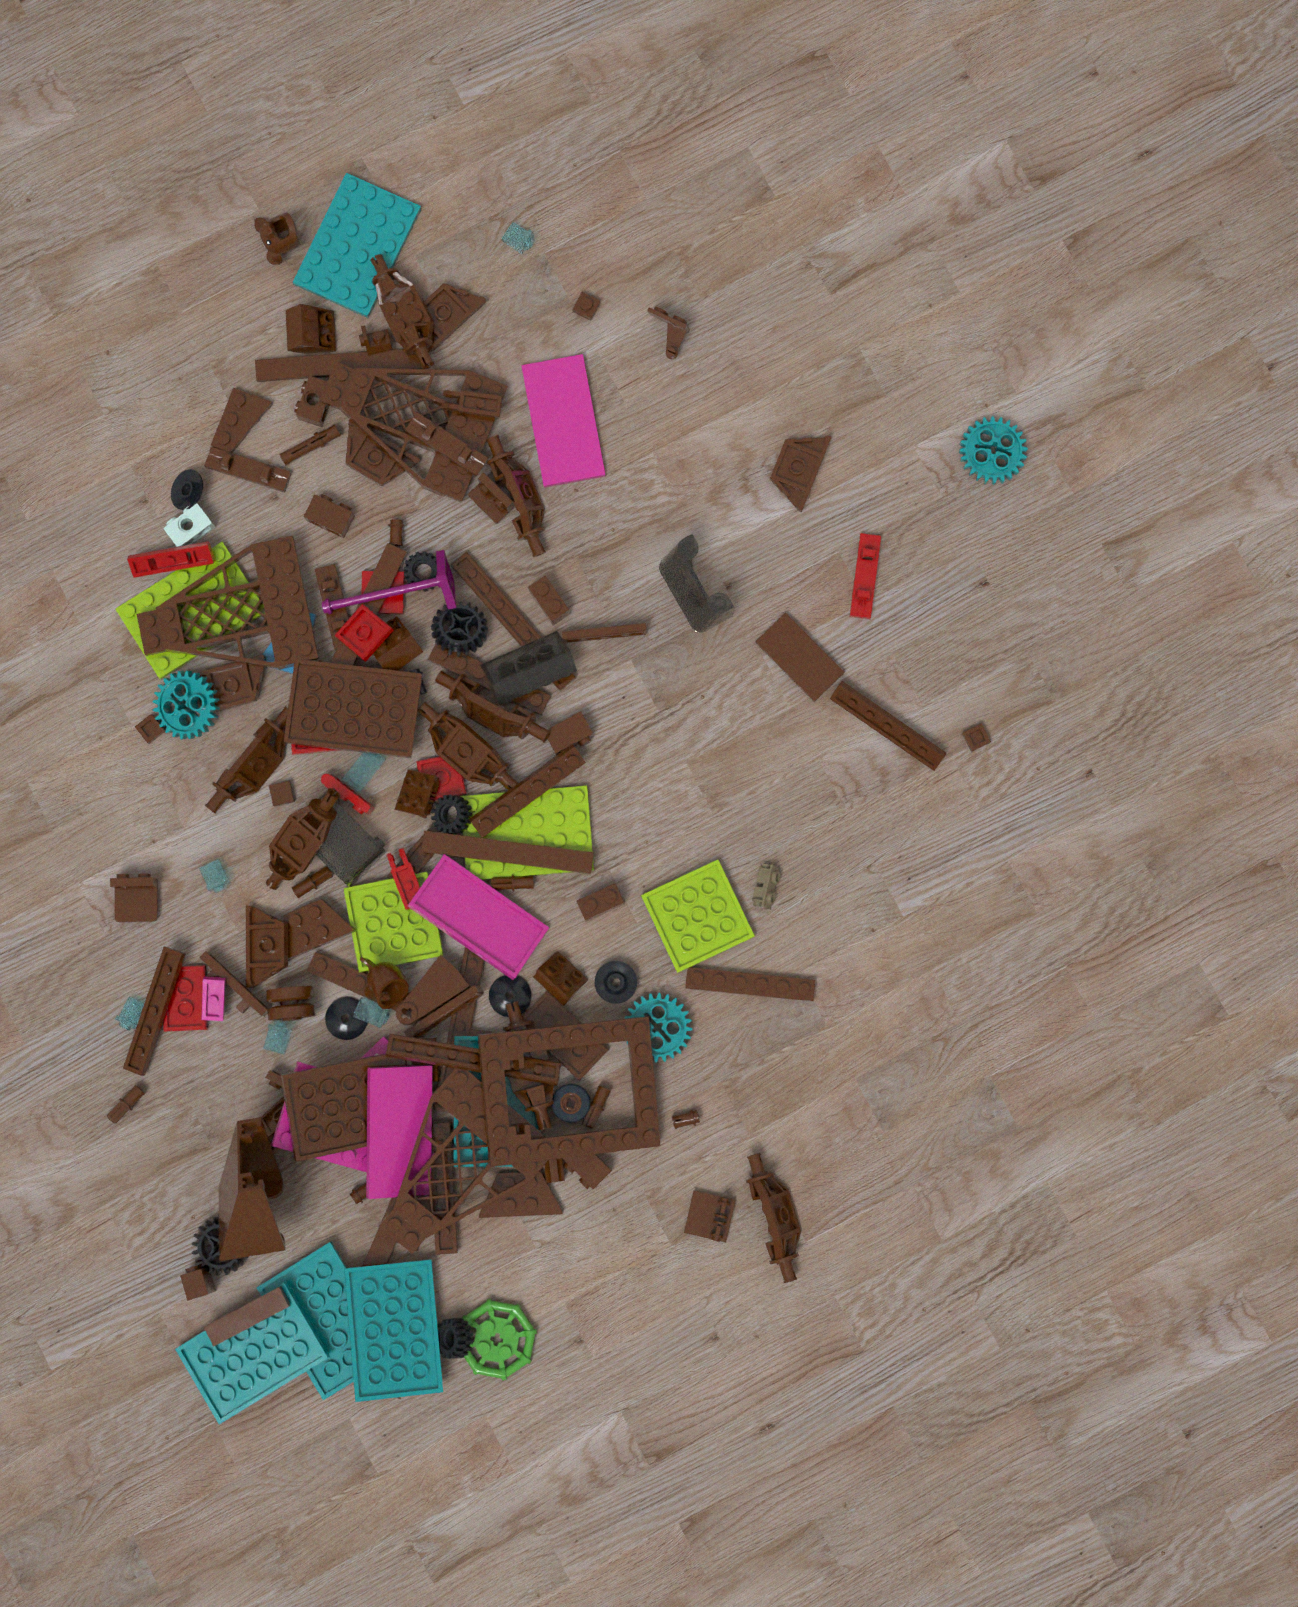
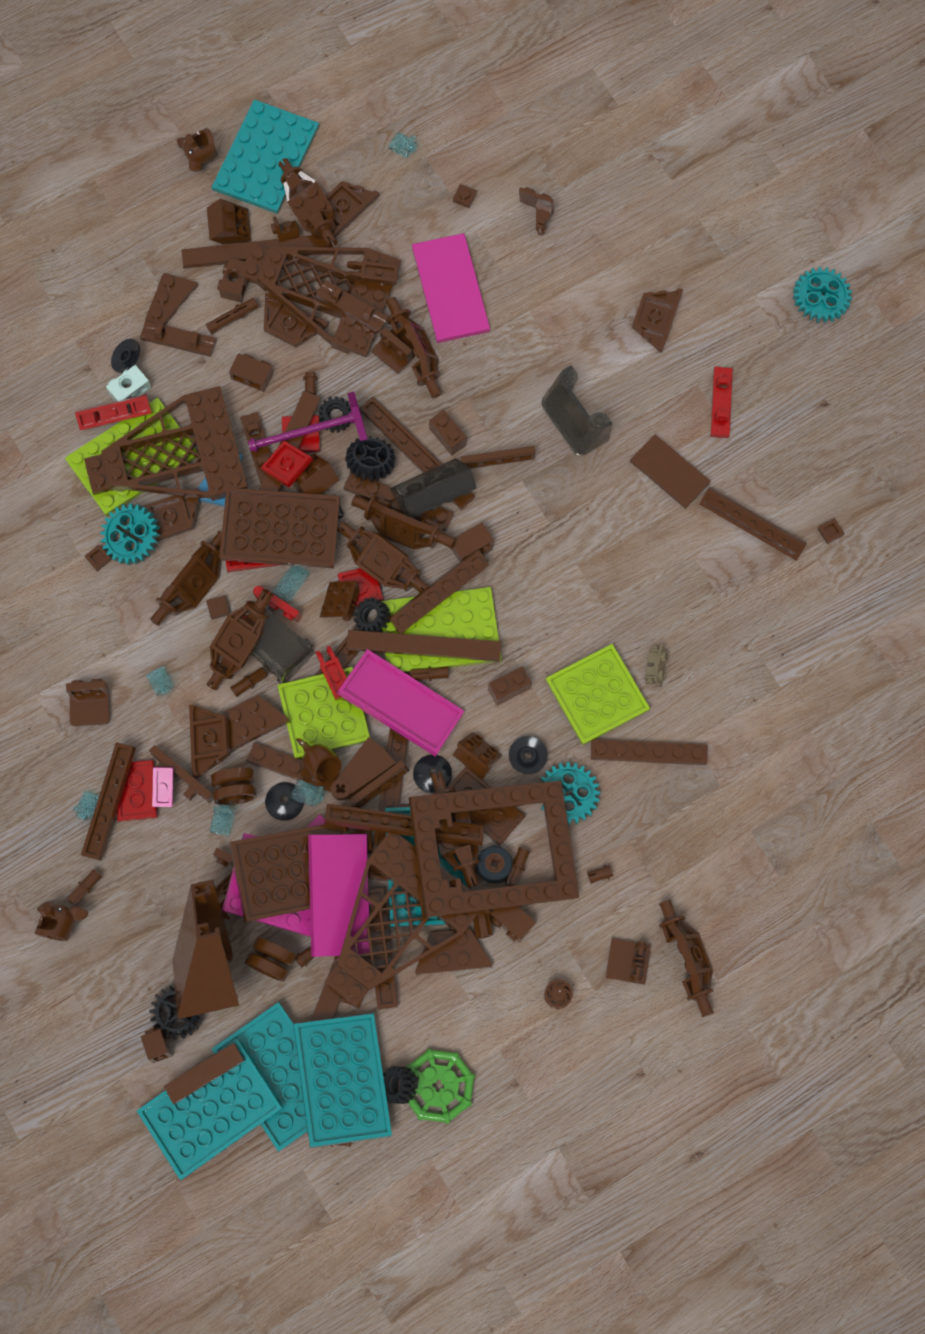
camera: 10 degrees left, 10 degrees down
(95, 1141) = (58, 921): none -> reddish brown piece
(324, 1193) = (269, 962): none -> reddish brown wheel
(631, 1248) = (558, 994): none -> reddish brown wheel

